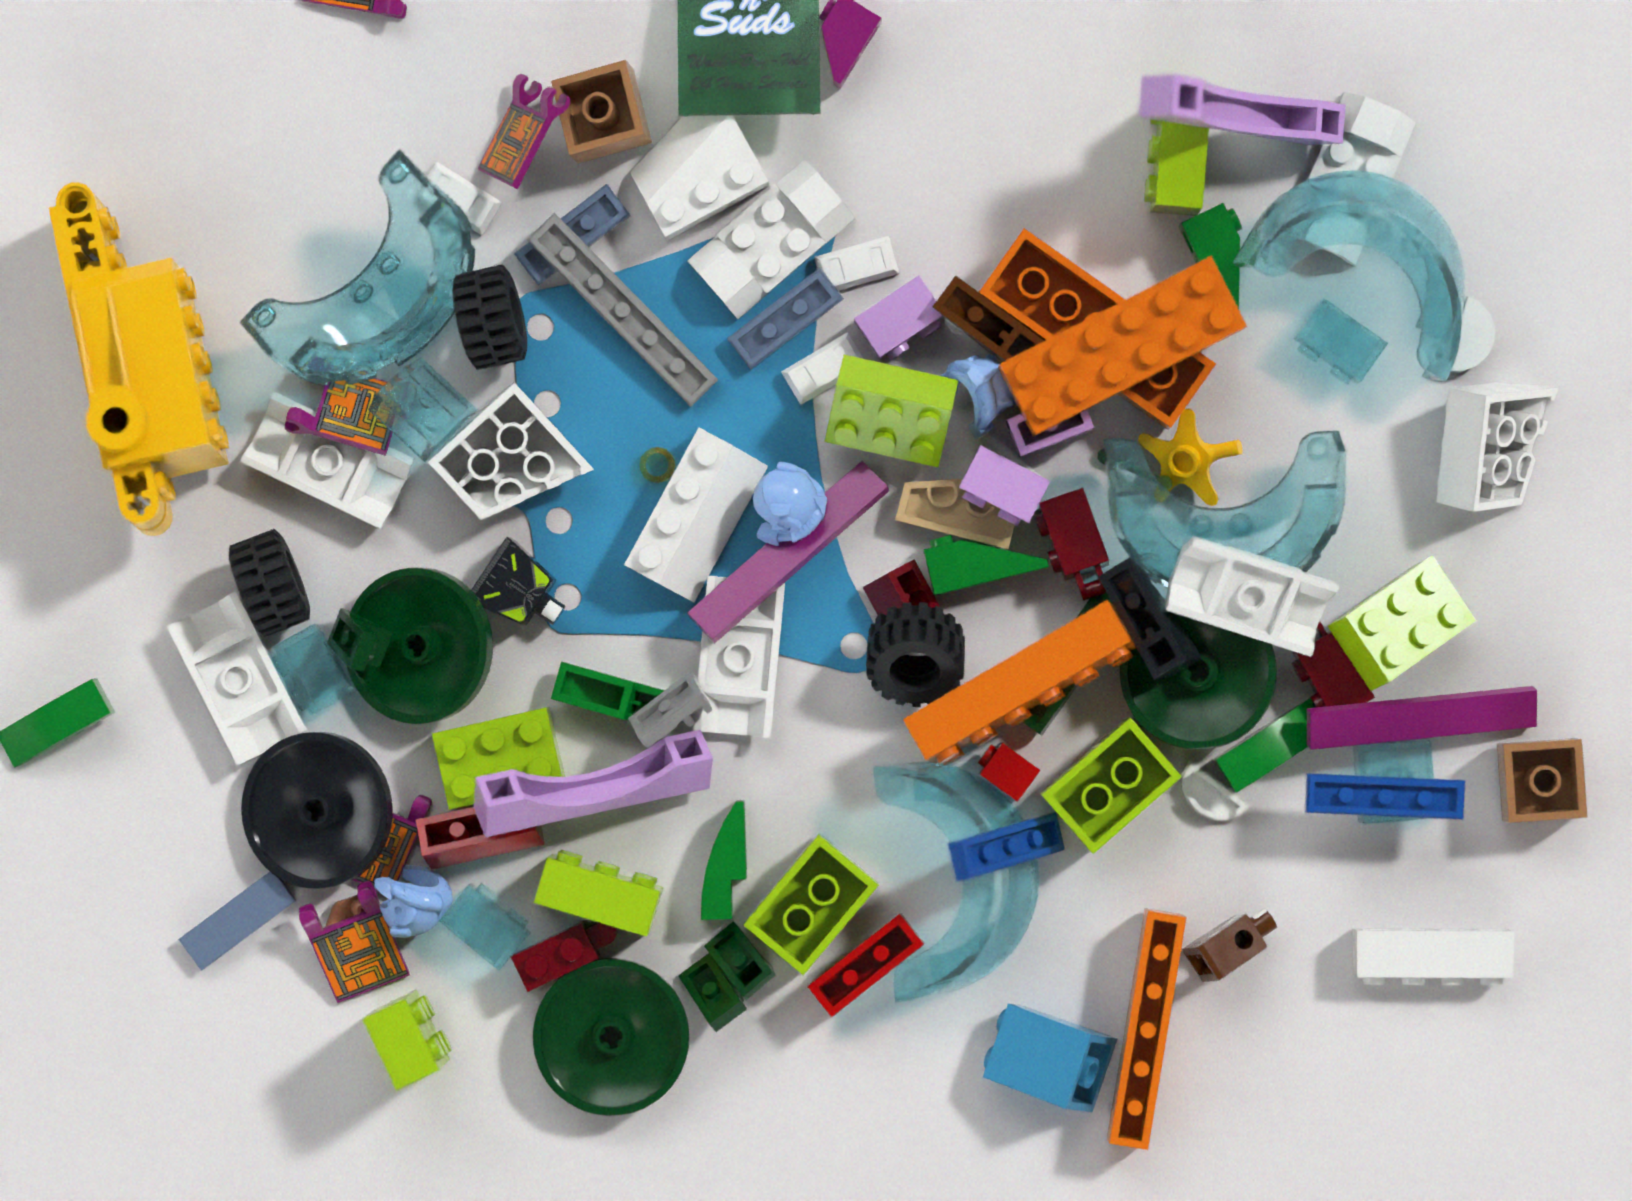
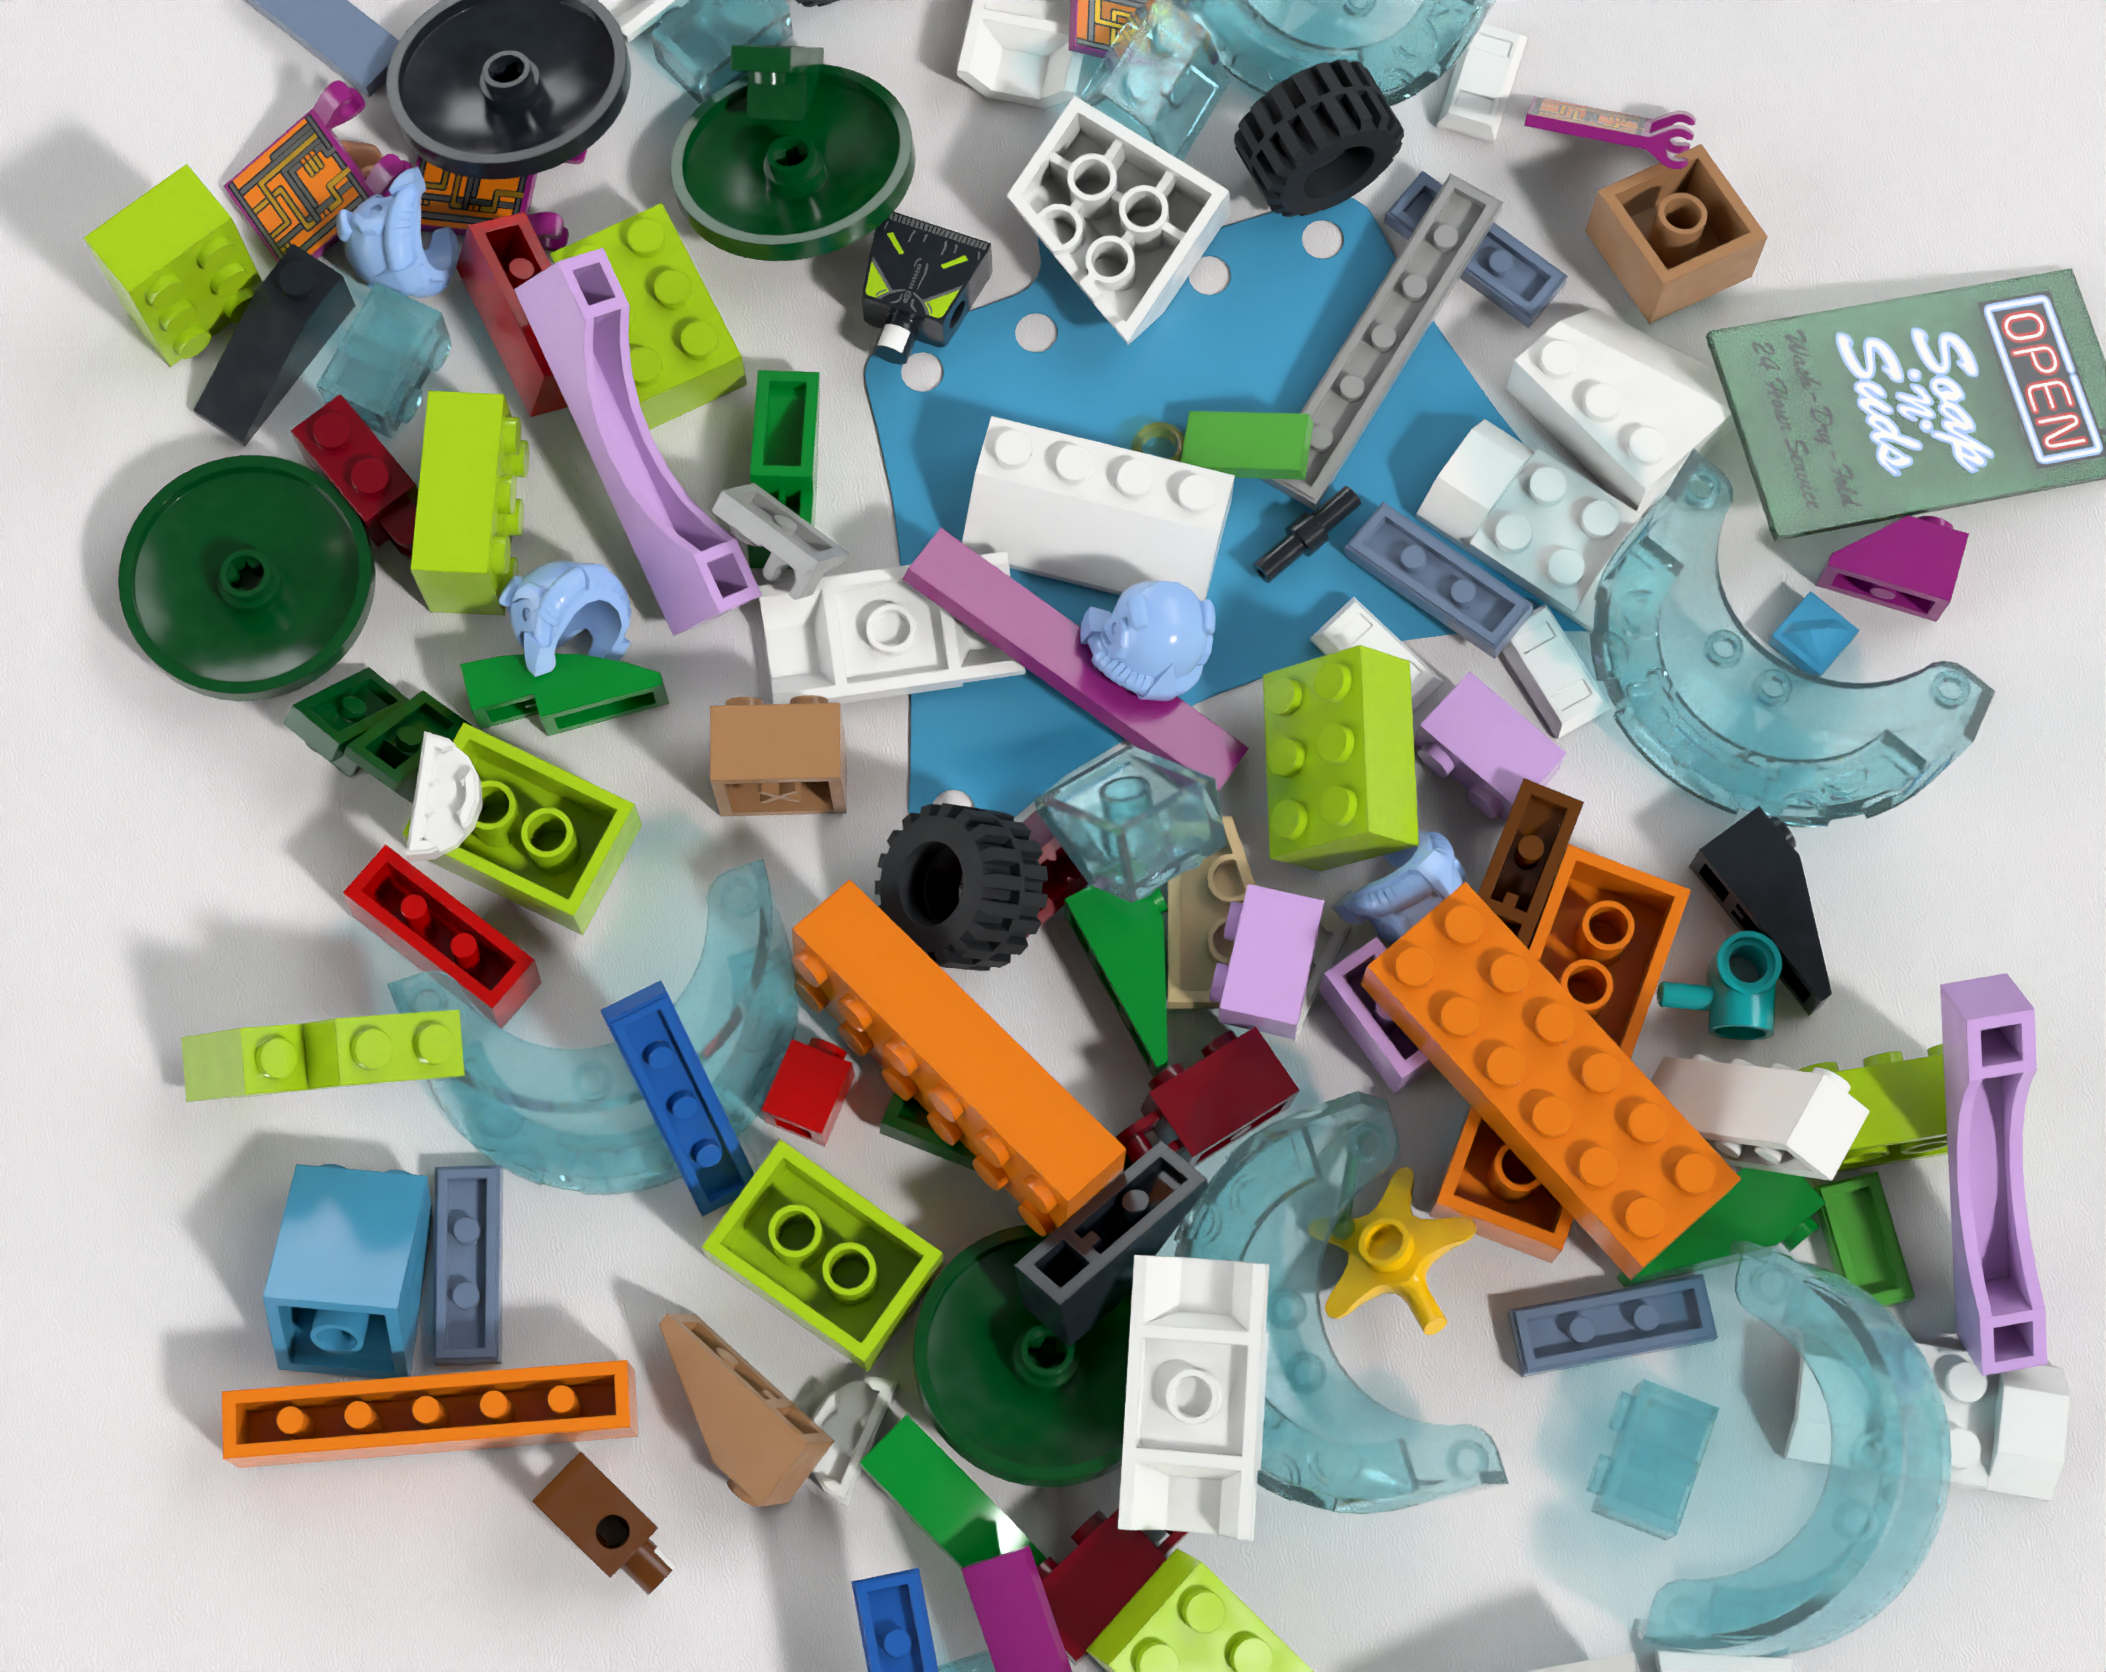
camera: 80 degrees right, 15 degrees down
(458, 993) = (274, 343): none -> black slope
(672, 412) = (1249, 443): none -> bright green tile
(676, 856) = (558, 603): none -> light blue helmet
(736, 389) = (1306, 534): none -> black bar
(790, 945) = (444, 800): none -> white tile
(806, 743) = (778, 757): none -> medium nougat brick
(874, 101) = (1813, 635): none -> dark azure tile
(902, 543) = (1135, 821): none -> clear light blue slope
(922, 160) = (1732, 715): none -> clear light blue windscreen
(937, 1035) = (322, 1055): none -> lime arch
(1026, 179) = (1765, 891): none -> black slope
(1059, 991) = (468, 1265): none -> sand blue tile
(1090, 221) = (1734, 1007): none -> teal piece
(1169, 235) = (1765, 1115): none -> white brick
(1191, 851) = (744, 1419): none -> medium nougat slope
(1244, 183) = (1864, 1238): none -> bright green tile
(1257, 342) = (1612, 1325): none -> sand blue tile

